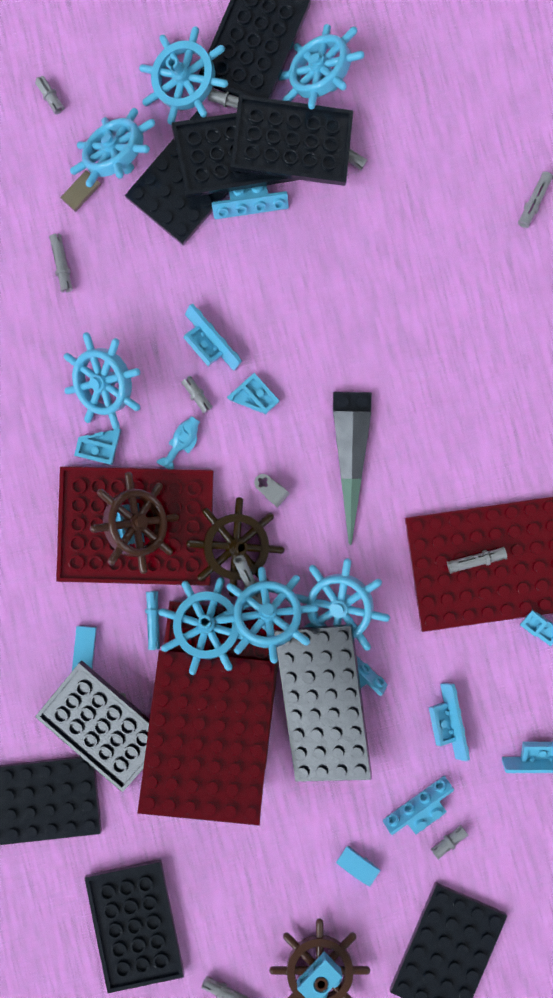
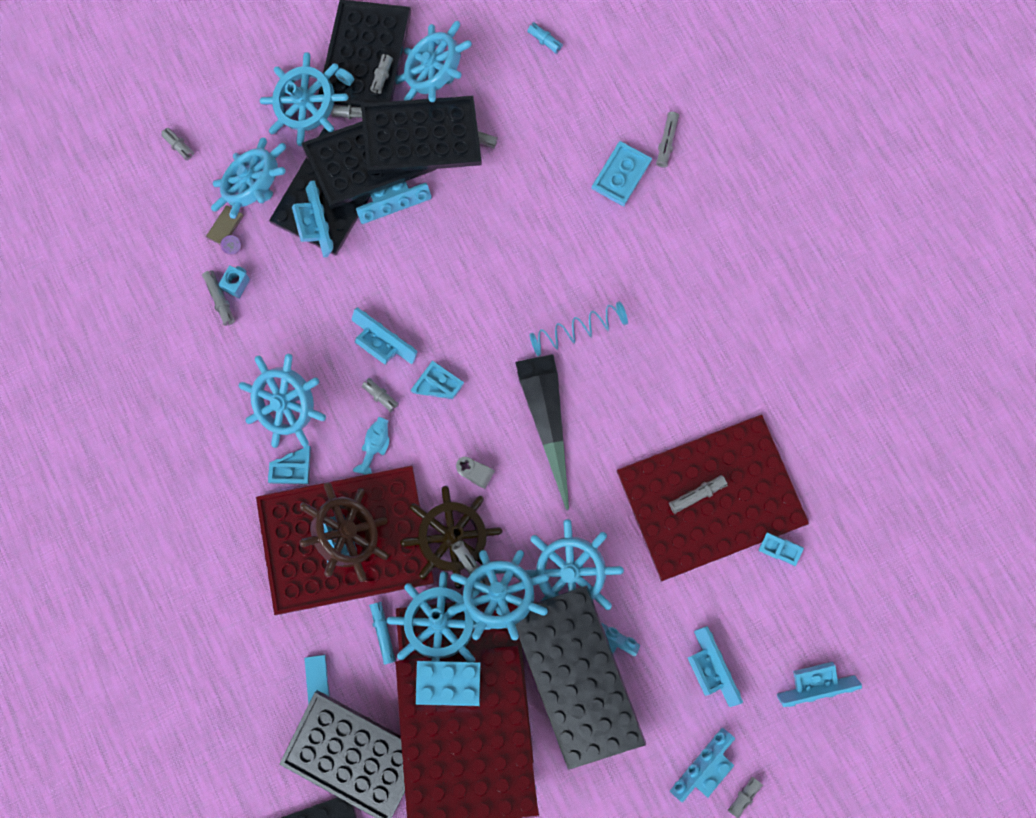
camera: 15 degrees left, 10 degrees down
(82, 211) = (230, 244): none -> medium lavender tile
(82, 257) = (237, 288): none -> medium azure brick
(165, 205) = (311, 220): none -> medium azure bracket
(202, 684) = (448, 683): none -> medium azure plate
(228, 61) = (344, 76): none -> medium azure tile
(266, 66) = (381, 74): none -> light grey pin
(438, 64) = (545, 37): none -> medium azure pin
(446, 361) = (620, 310): none -> medium azure piece
(481, 225) = (621, 173): none -> medium azure plate

